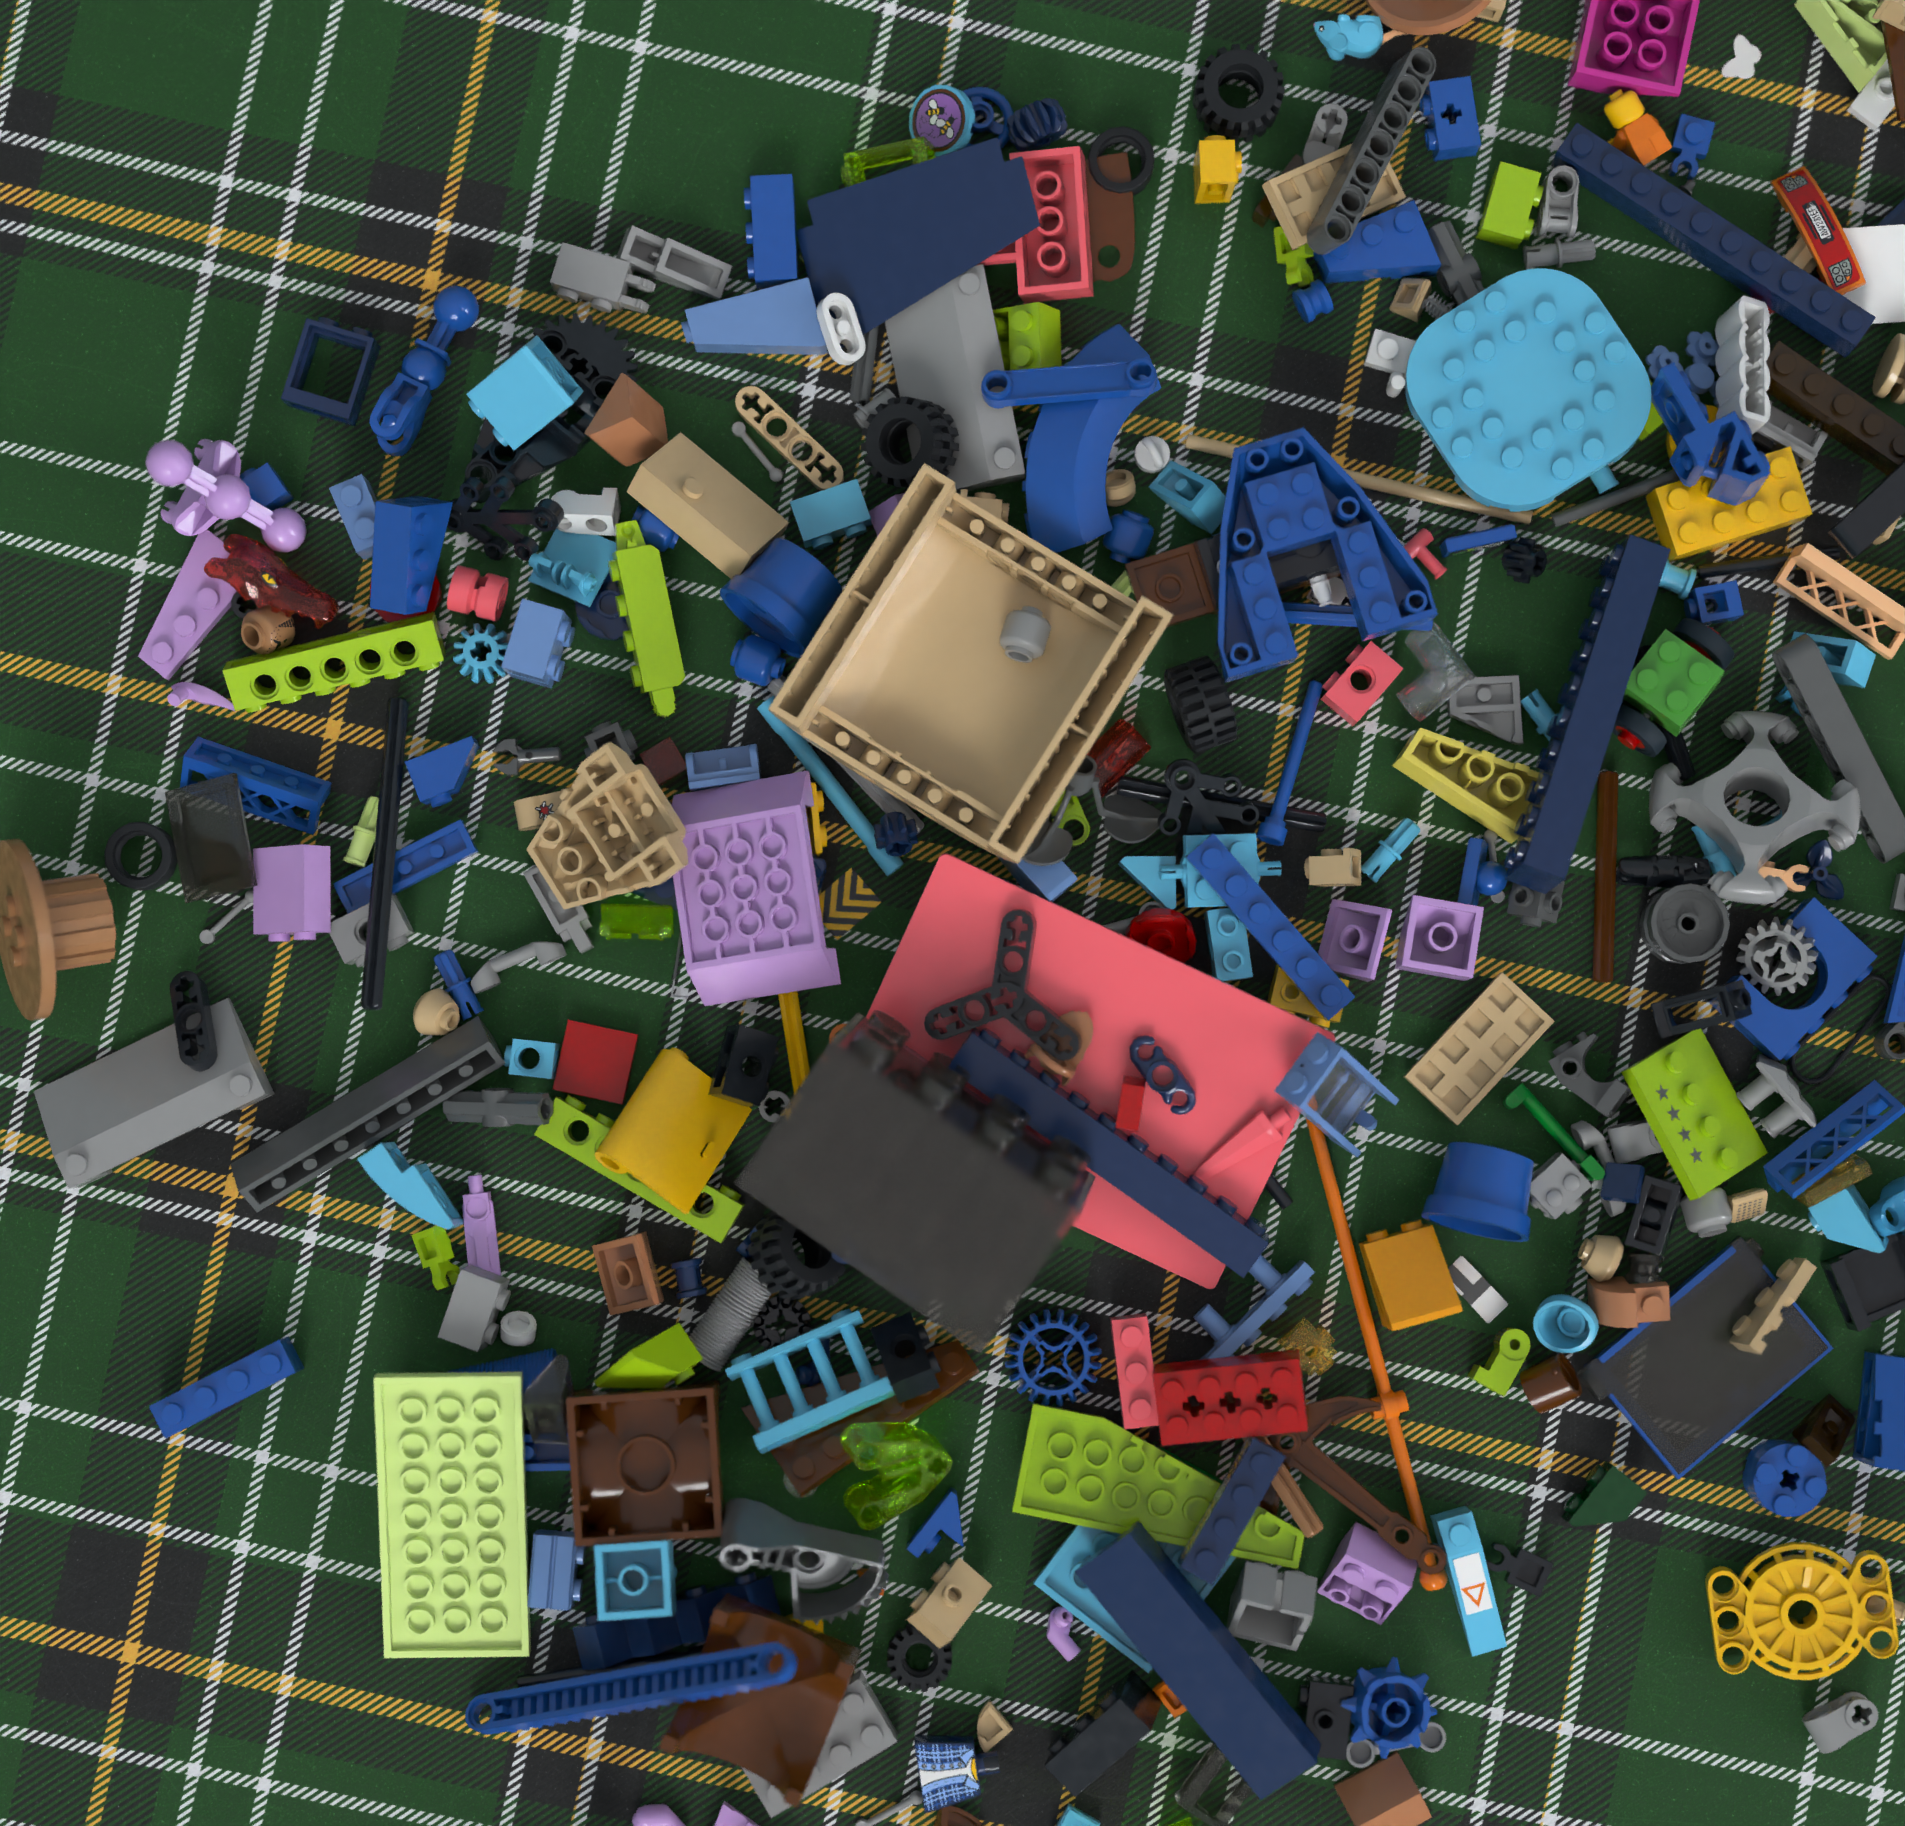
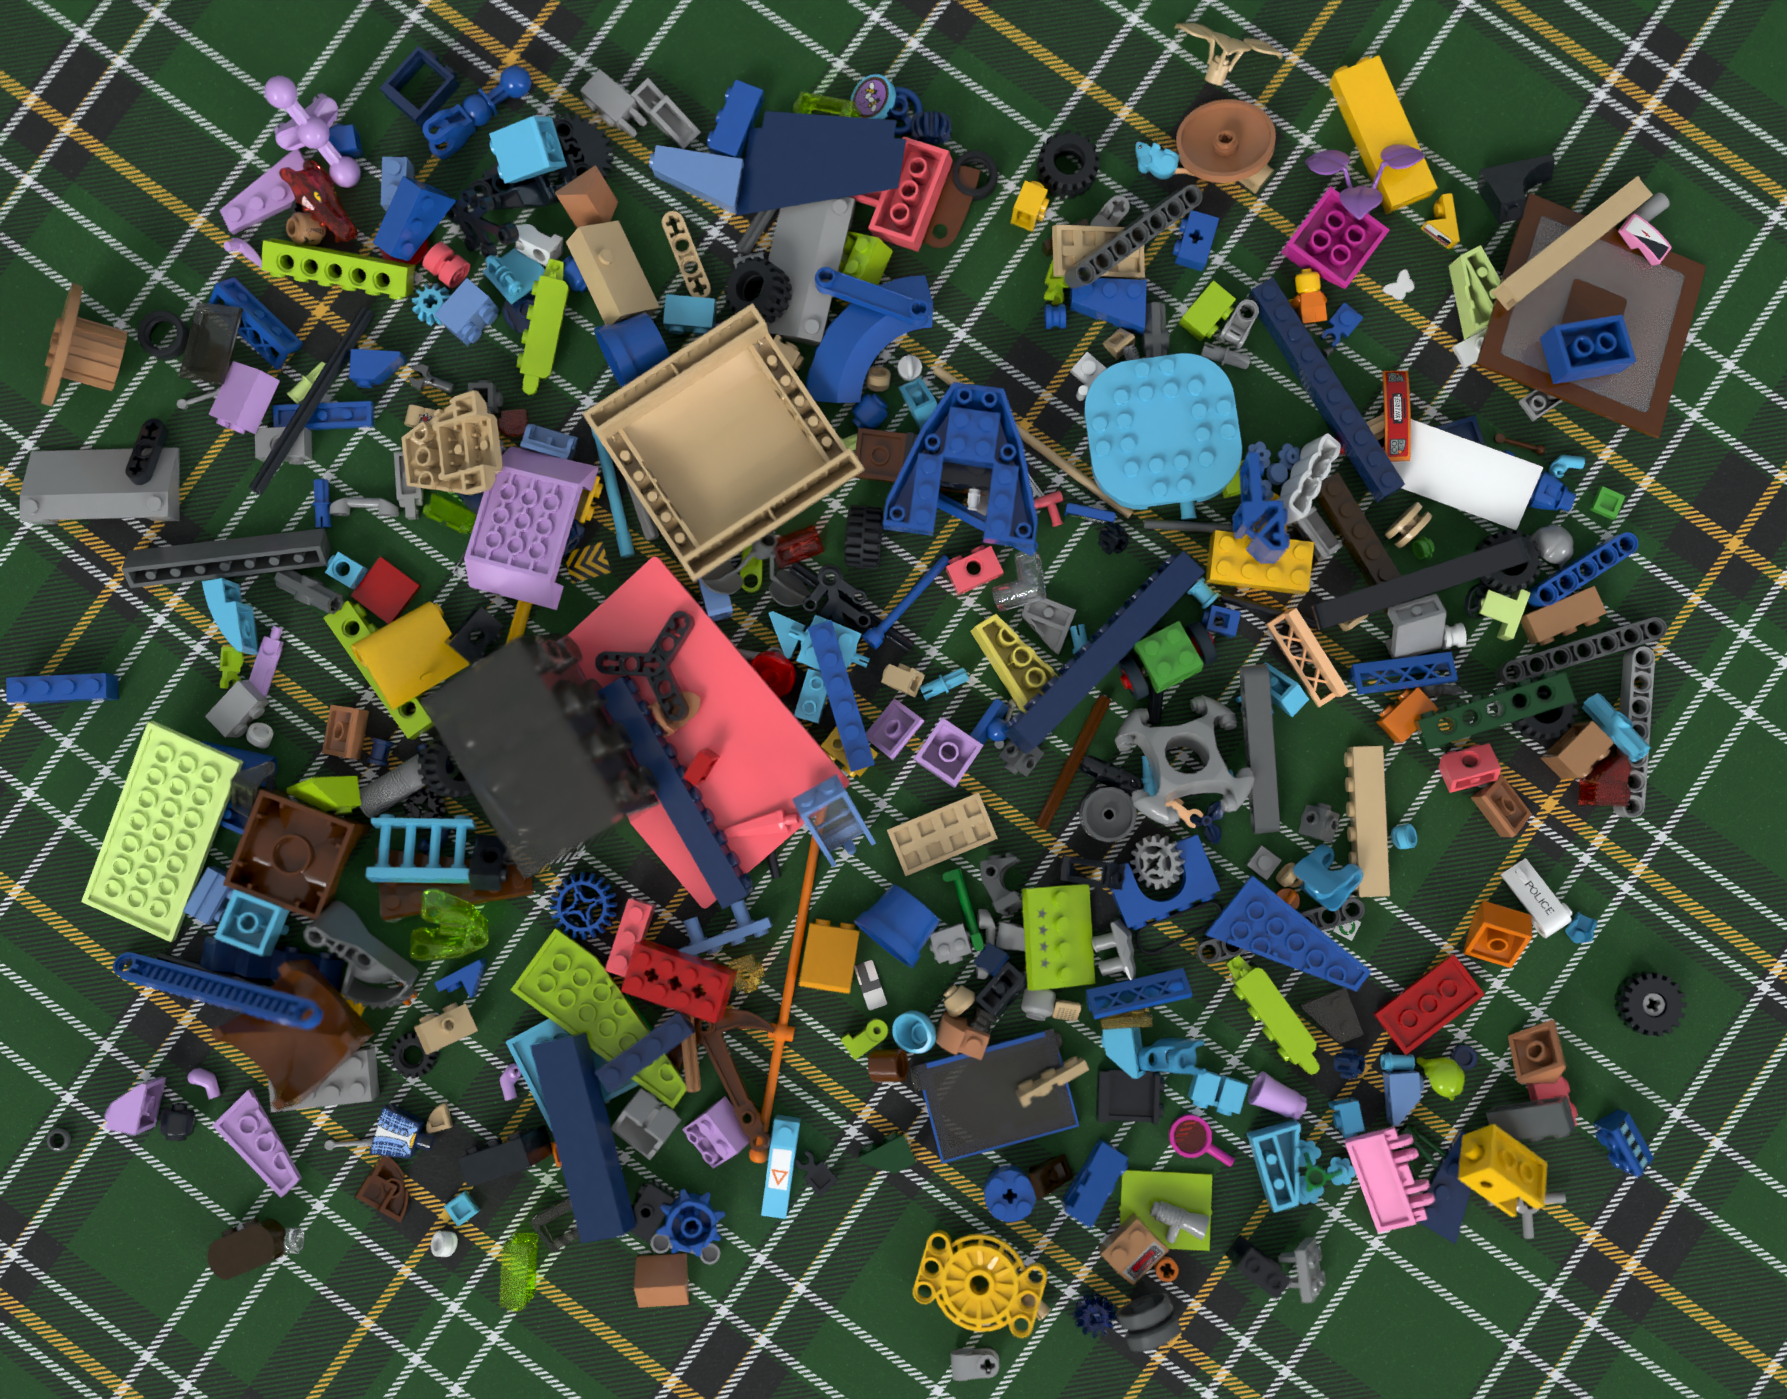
camera: 30 degrees right, 0 degrees up
(436, 1013) = (299, 514): tan cone -> none
(739, 430) = (658, 236): light grey hinge -> none
(757, 660) = (600, 383): blue head -> none
(842, 330) = (748, 201): white plate -> none
(895, 834) = (635, 532): dark blue gear -> none
(1025, 634) = (771, 442): light grey head -> none
(1178, 1083) = (738, 767): dark blue piece -> none

